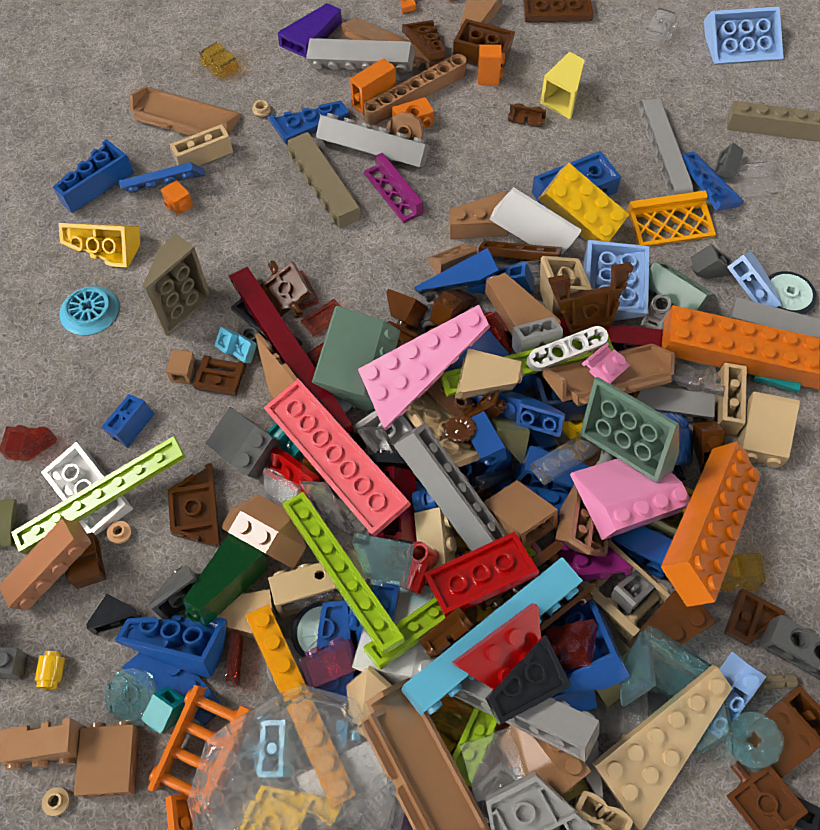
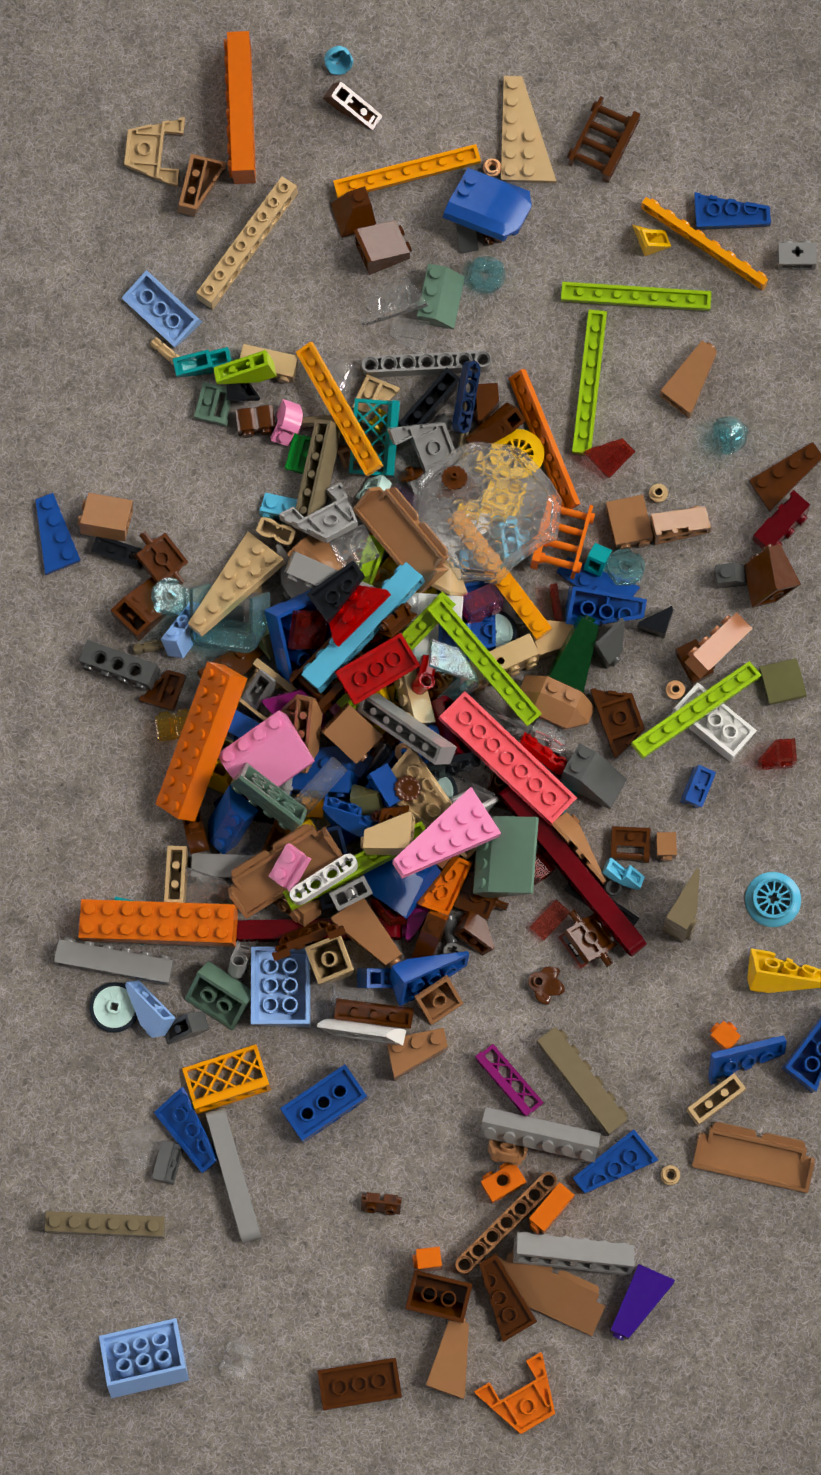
camera: 175 degrees right, 15 degrees up
(49, 670) = (693, 576): yellow brick -> none
(218, 60) = (735, 1238): clear yellow brick -> none
(340, 262) = (549, 984): none -> reddish brown plate
(562, 85) = (343, 1240): light yellow slope -> none
(583, 205) = (316, 1060): yellow brick -> none
(769, 428) = (147, 848): tan slope -> none

